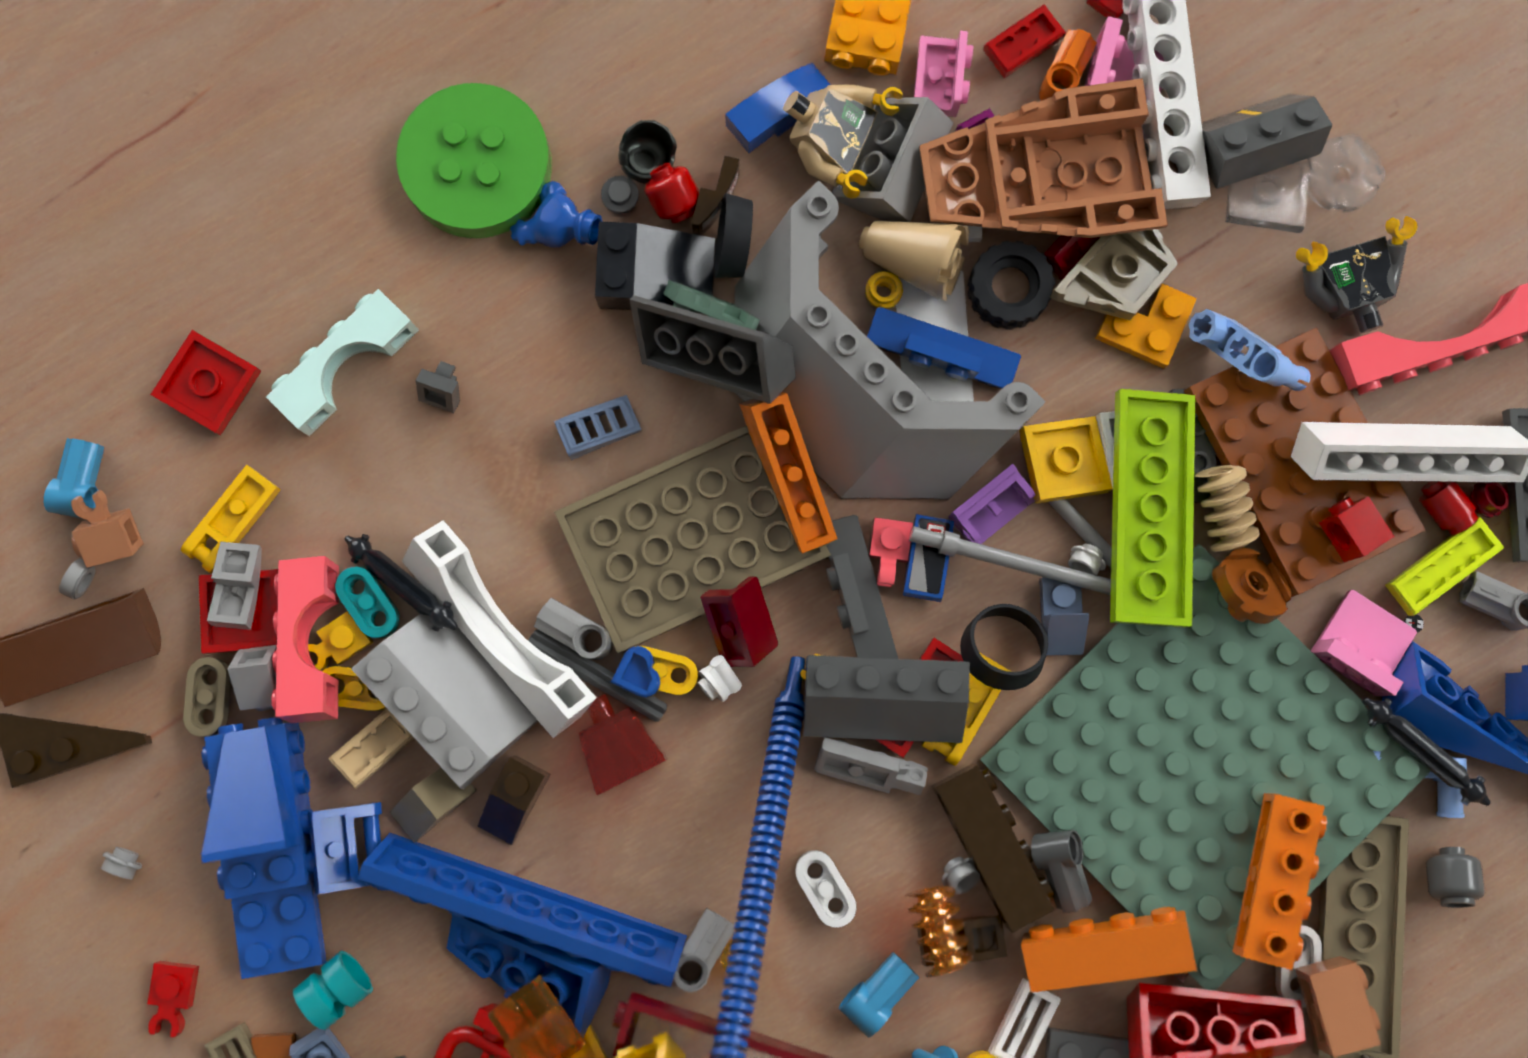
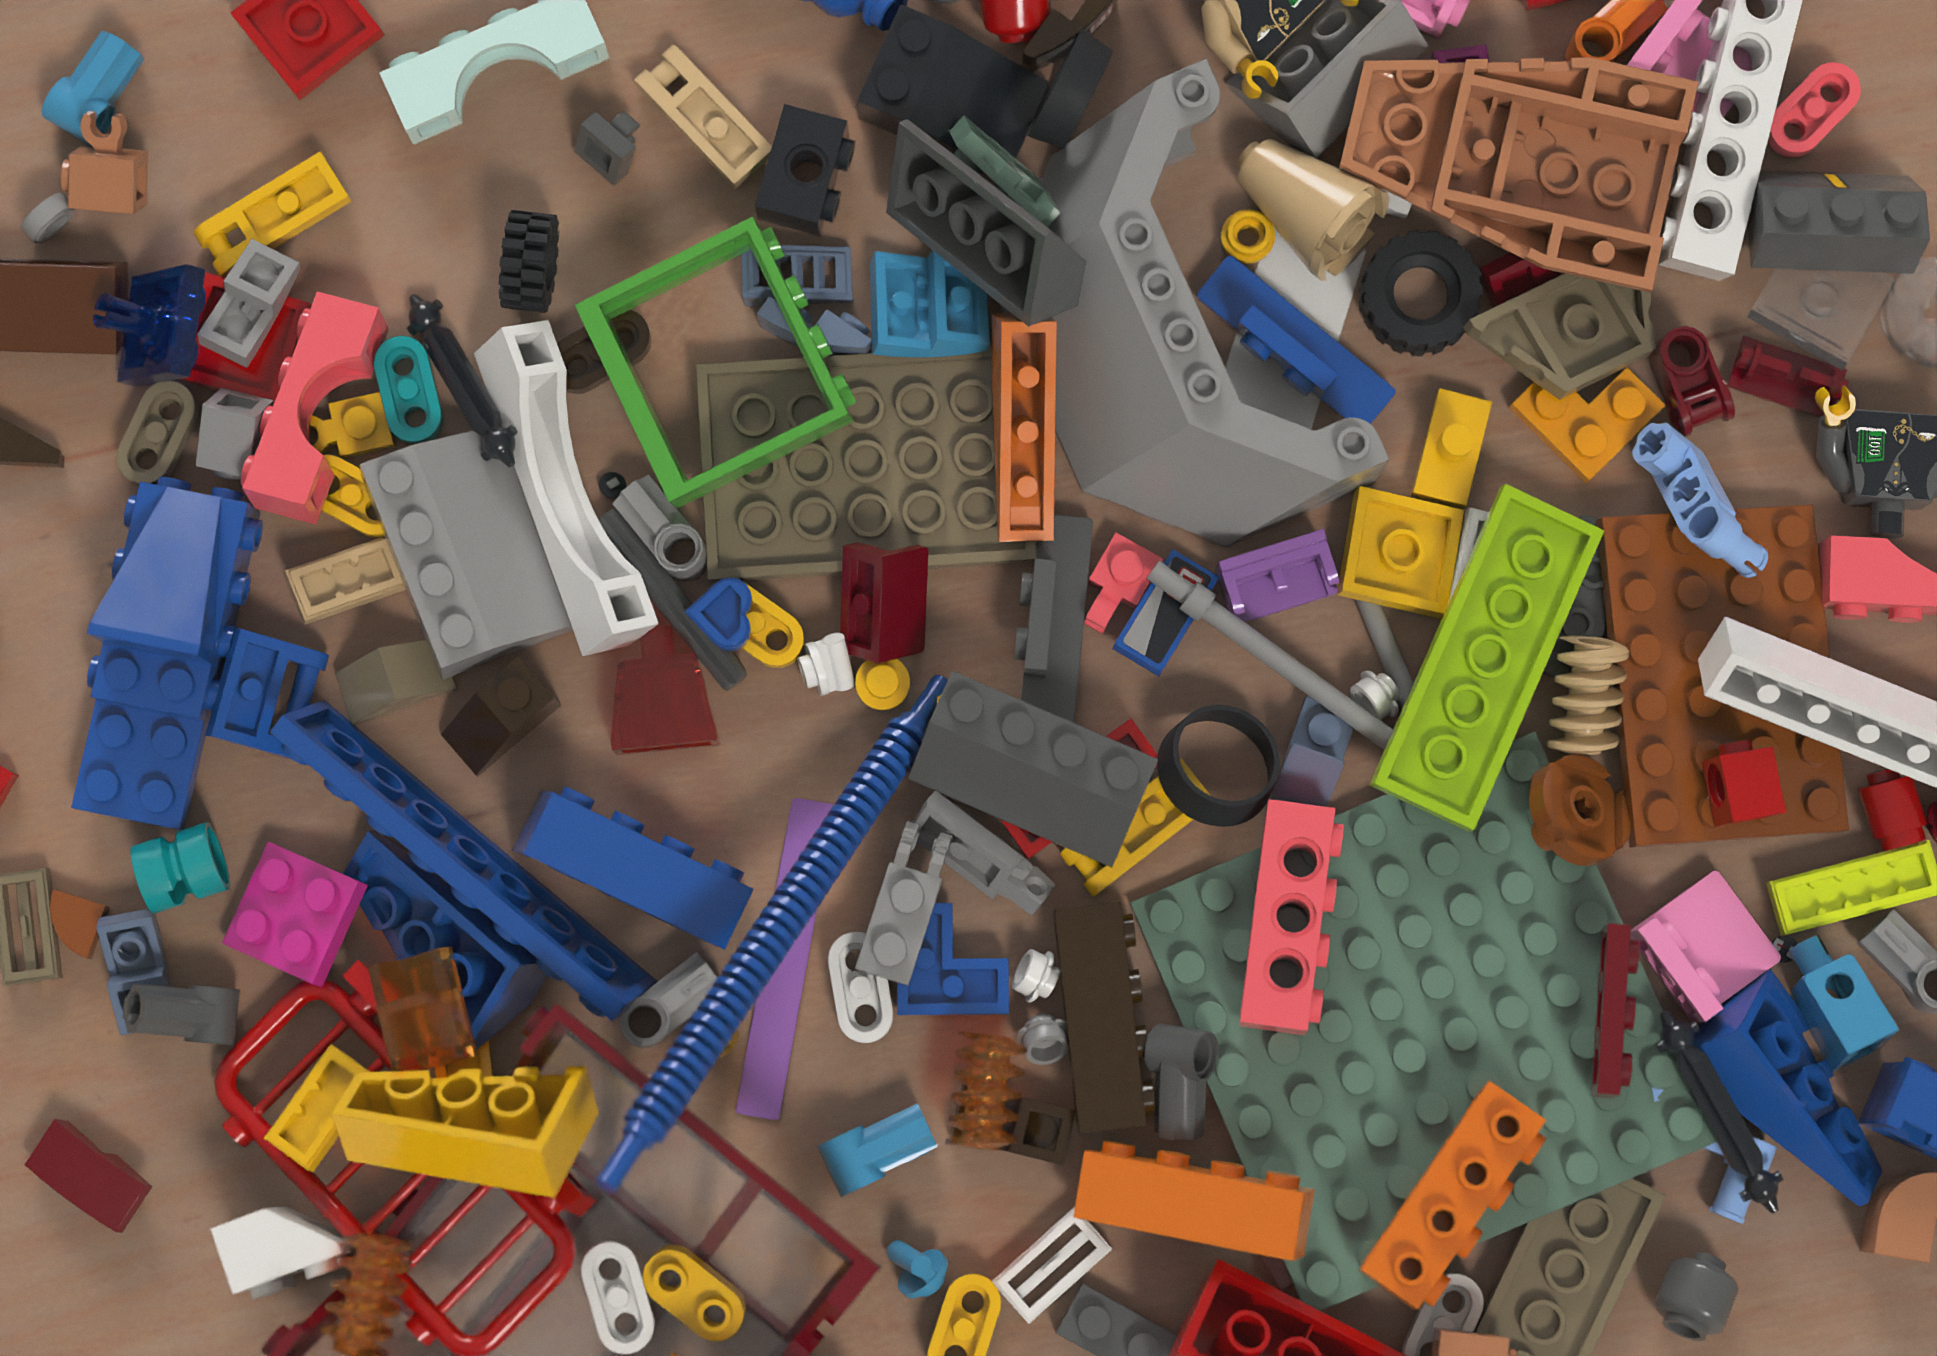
camera: 25 degrees right, 0 degrees up
(176, 623) = (156, 324): none -> clear blue plate
(415, 485) = (528, 261): none -> black tyre
(424, 990) = (294, 914): none -> dark pink plate
(475, 504) = (602, 307): none -> bright green window
(484, 525) = (580, 346): none -> dark brown plate
(497, 345) = (705, 117): none -> tan plate
(528, 613) = (612, 484): none -> black piece
(566, 335) = (800, 139): none -> black brick
(635, 460) = (843, 334): none -> sand blue slope
(642, 869) = (633, 867): none -> blue wedge
(692, 416) = (925, 308): none -> dark azure slope
(760, 679) = (882, 684): none -> yellow plate
(779, 945) = (779, 1002): none -> medium lavender sticker
(835, 828) = (902, 911): none -> light grey hinge
(875, 864) = (949, 984): none -> blue plate
(938, 834) = (1035, 975): none -> white plate
(1070, 379) = (1451, 448): none -> yellow tile
(1097, 796) = (1290, 828): none -> coral brick
(1211, 276) = (1691, 384): none -> dark red piece
(1216, 77) = (1811, 112): none -> coral plate
(1265, 251) = (1784, 376): none -> dark red hinge
(1333, 713) = (1614, 1011): none -> dark red plate
(1472, 649) = (1843, 1026): none -> dark azure torso

